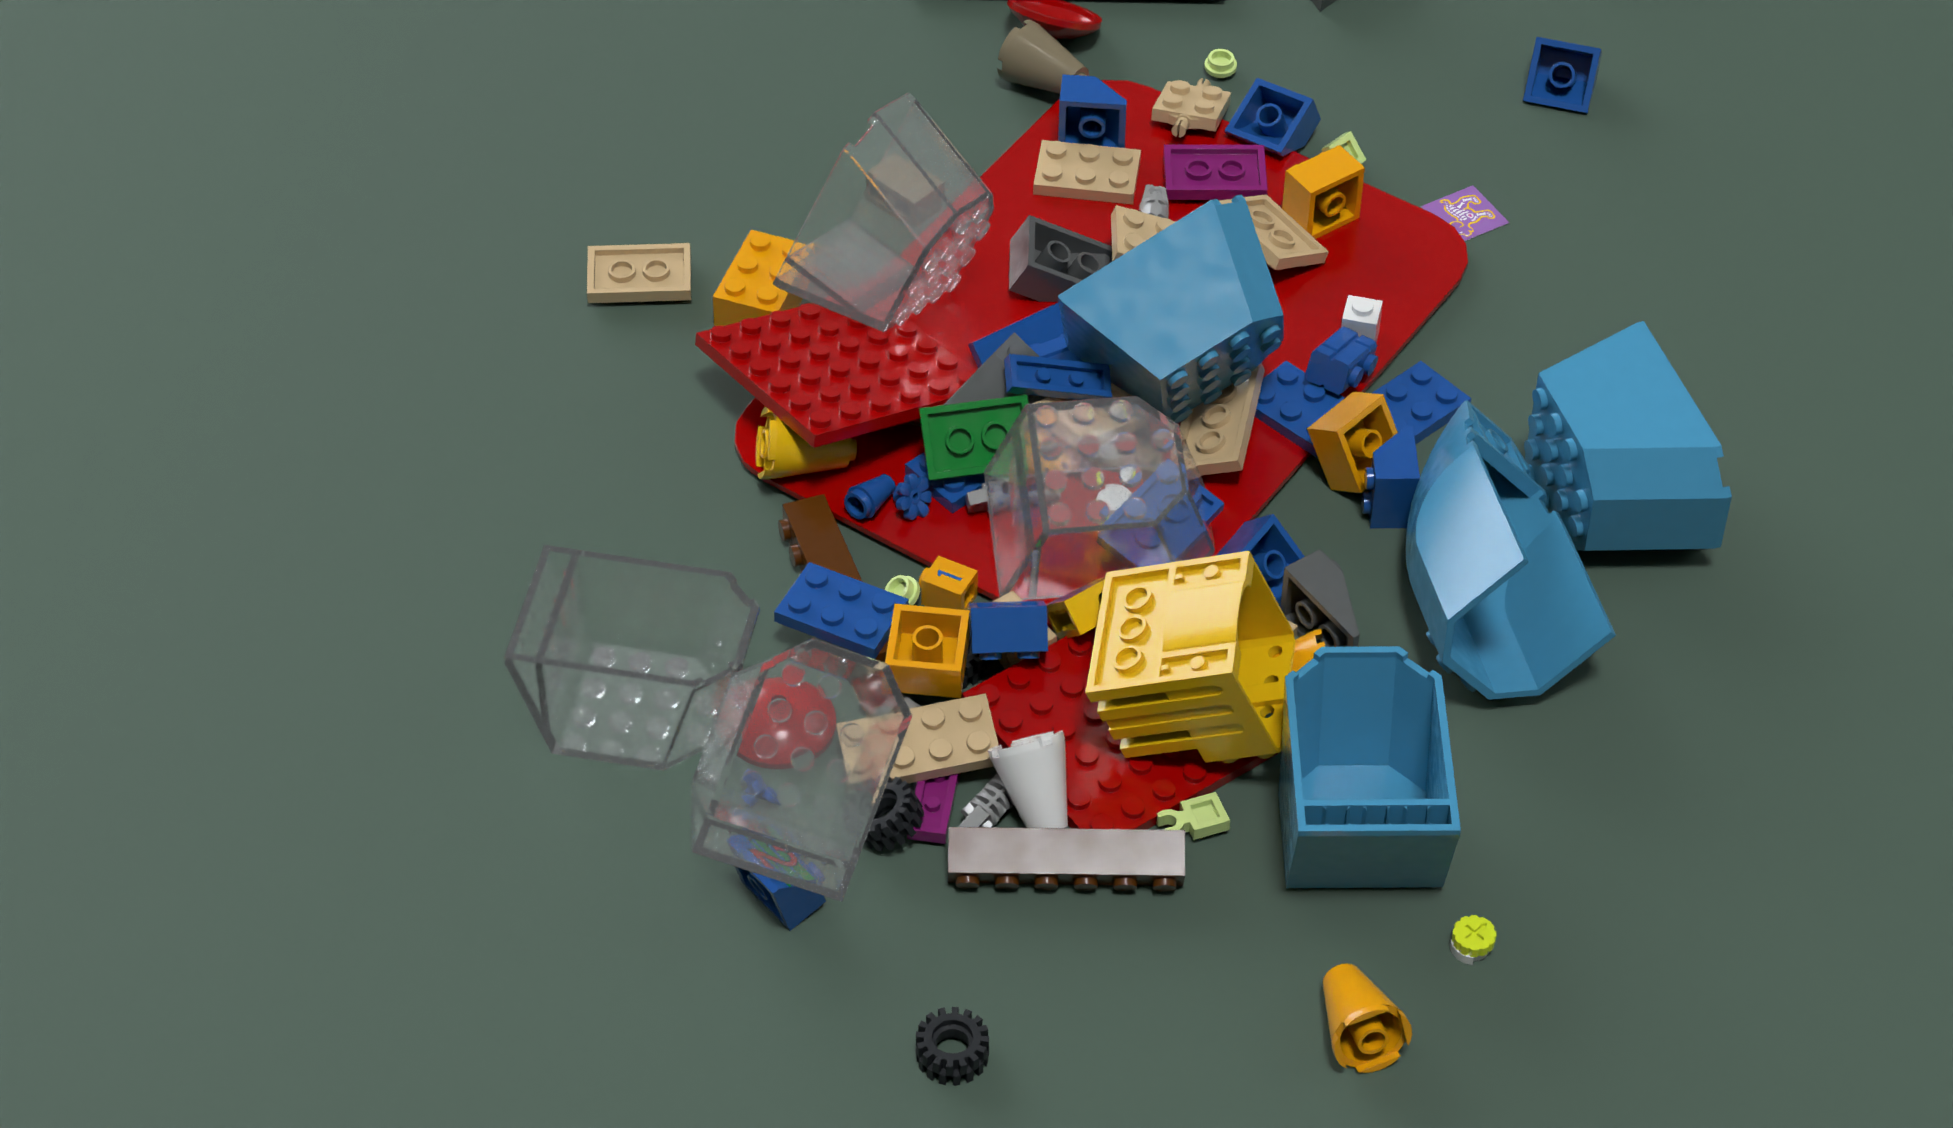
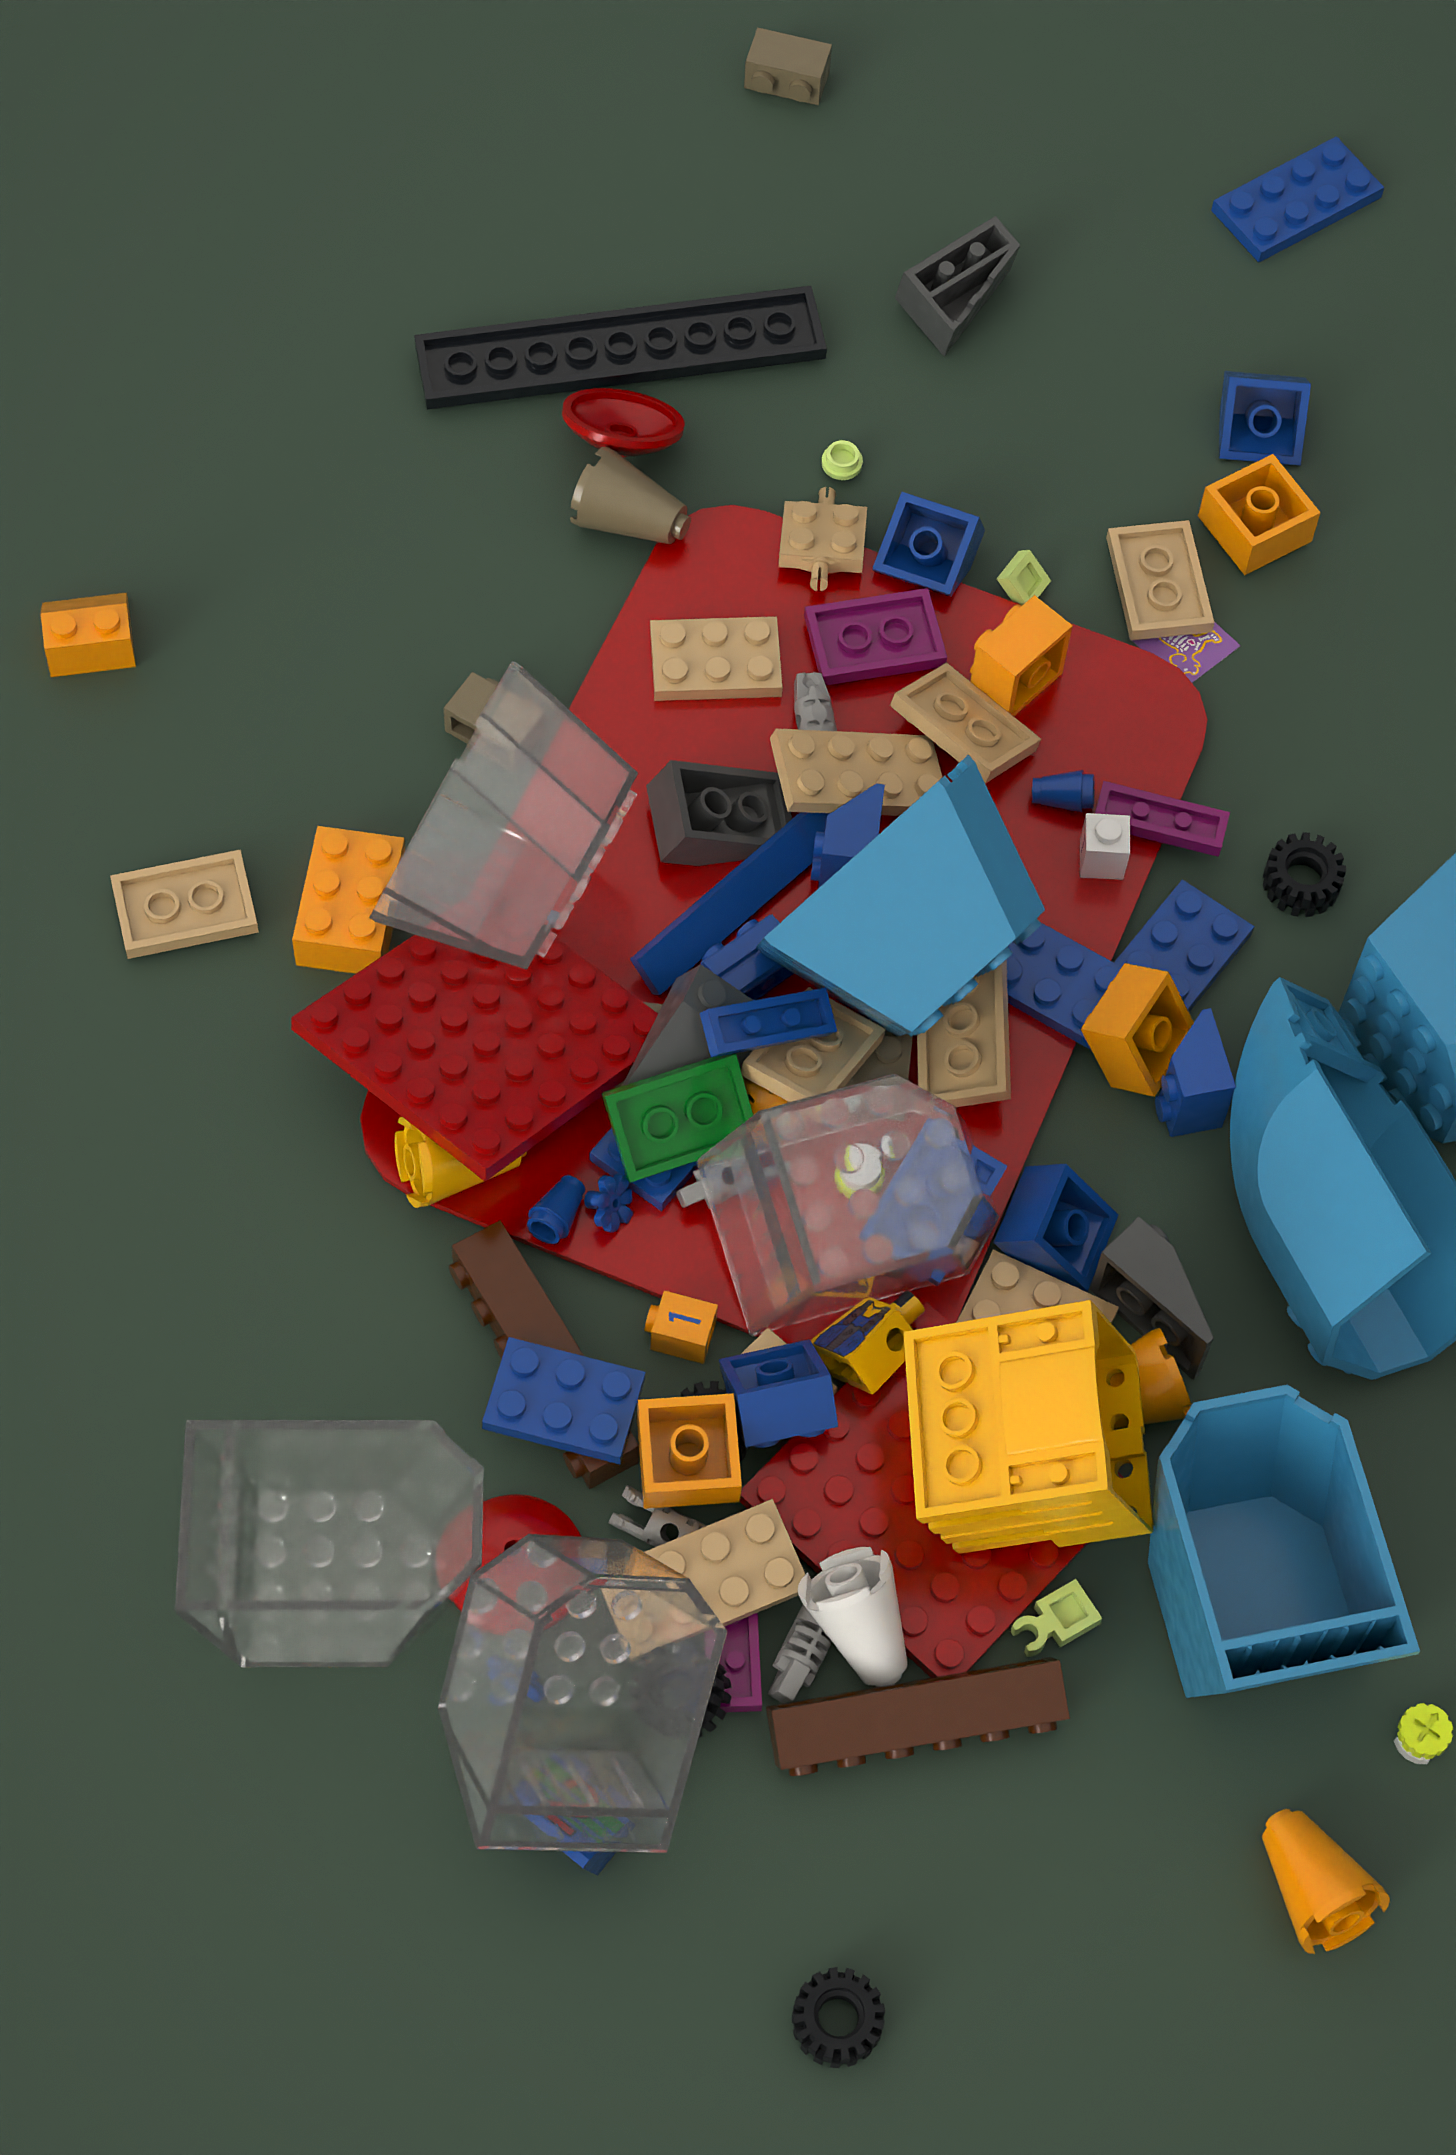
camera: 15 degrees left, 15 degrees up
(612, 100) = (87, 634): none -> light orange slope
(904, 586) = (627, 1344): yellowish green plate -> none
(1091, 112) = (708, 580): blue slope -> none
(1338, 286) = (1065, 791): none -> blue cone
(1342, 361) = (1095, 910): blue brick -> none
(1418, 316) = (1166, 818): none -> magenta plate
(1453, 169) = (1160, 580): none -> tan plate
(1517, 356) = (1300, 895): none -> black tyre
(1541, 133) = (1258, 514): none -> light orange brick

